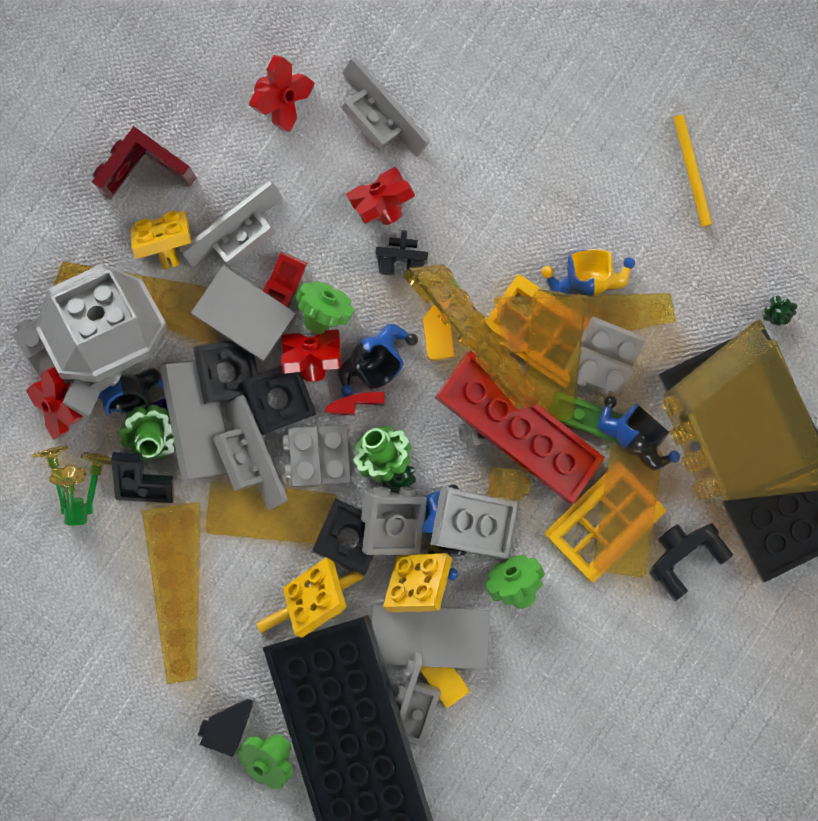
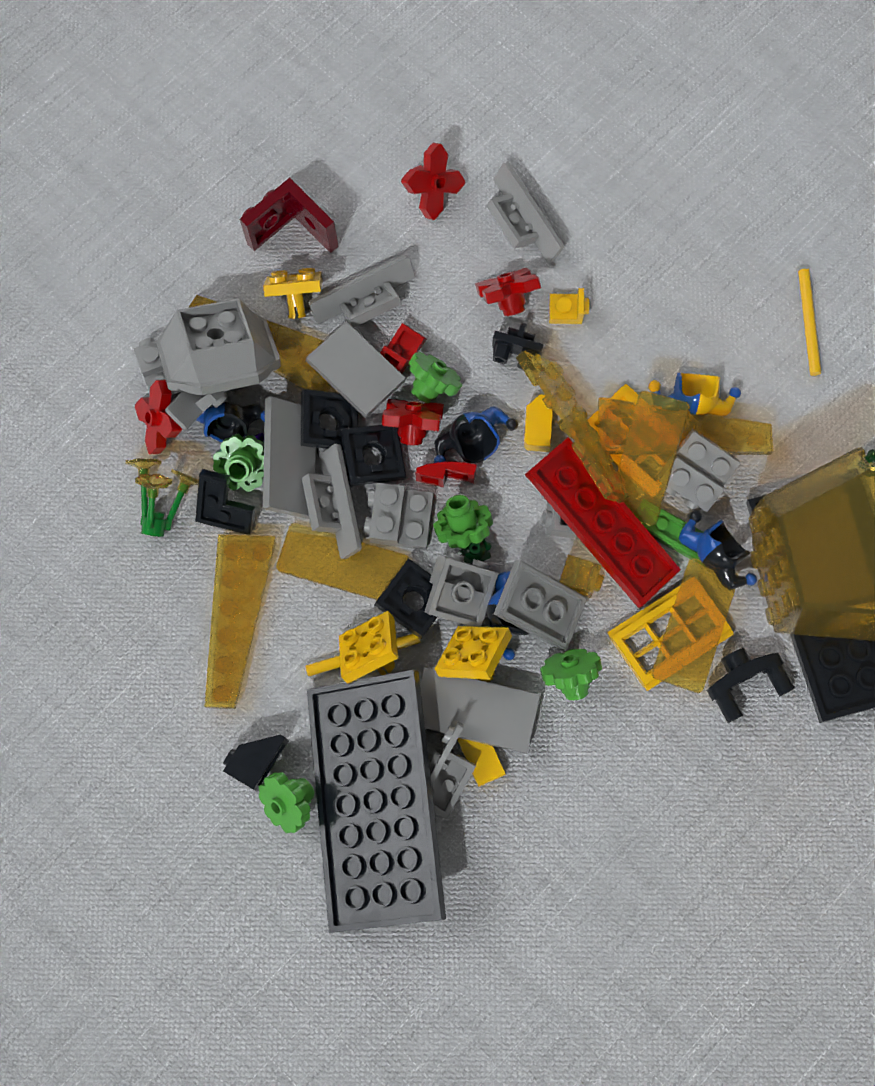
camera: 10 degrees right, 10 degrees down
(445, 202) = (568, 308): none -> yellow bracket

